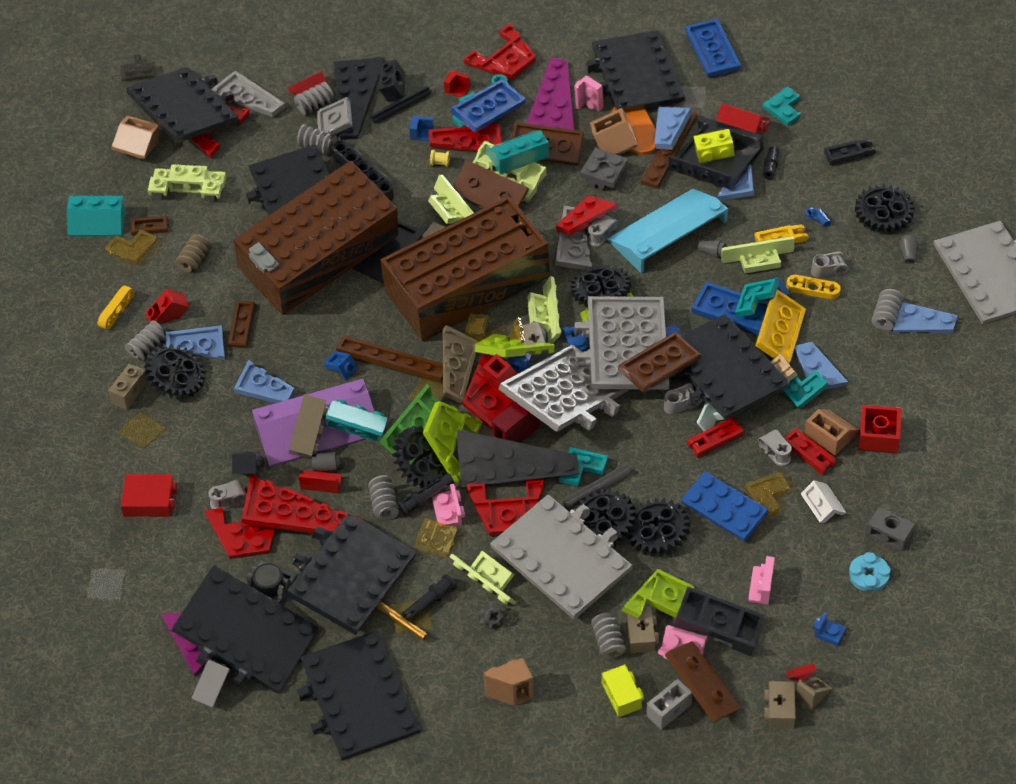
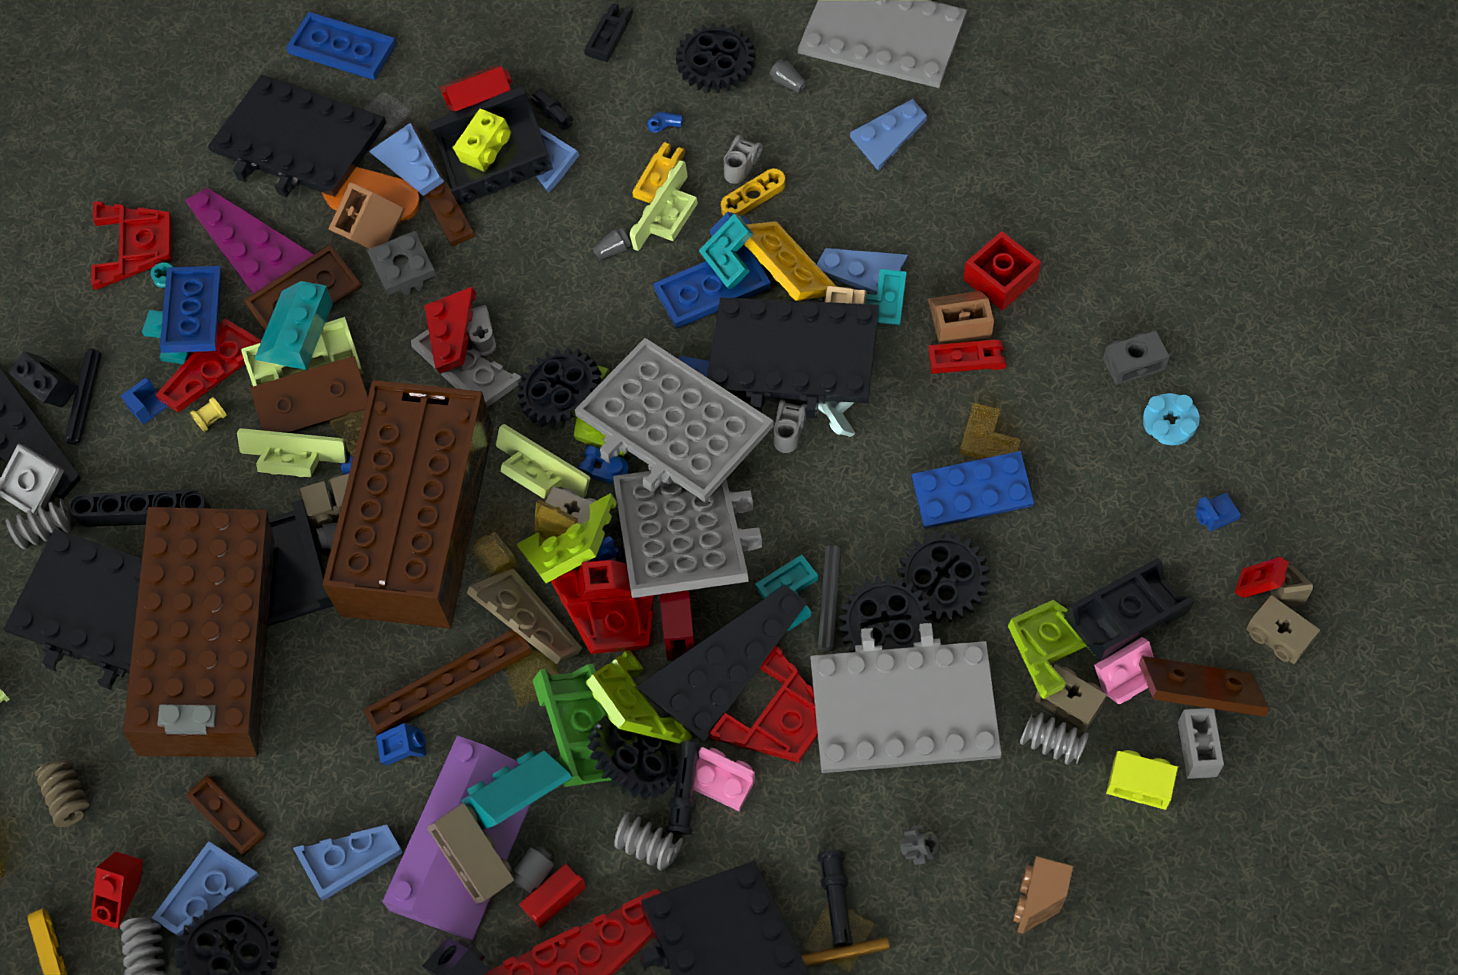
camera: 50 degrees left, 10 degrees up
(435, 537) = (752, 824): clear yellow piece -> none
(456, 84) = (120, 318): red panel -> none
(490, 573) = (857, 802): yellowish green bracket -> none
(589, 93) = (285, 198): bright pink bracket -> none
(659, 362) = (738, 407): reddish brown plate -> none
(667, 226) = (540, 265): medium azure slope -> none
(715, 437) = (869, 431): red plate -> none
(761, 582) = (1106, 527): bright pink bracket -> none
(776, 447) = (933, 382): light grey piece -> none
(781, 107) = (482, 47): teal plate -> none
(822, 501) = (1044, 394): white panel -> none
(887, 309) = (850, 151): light grey piece -> none

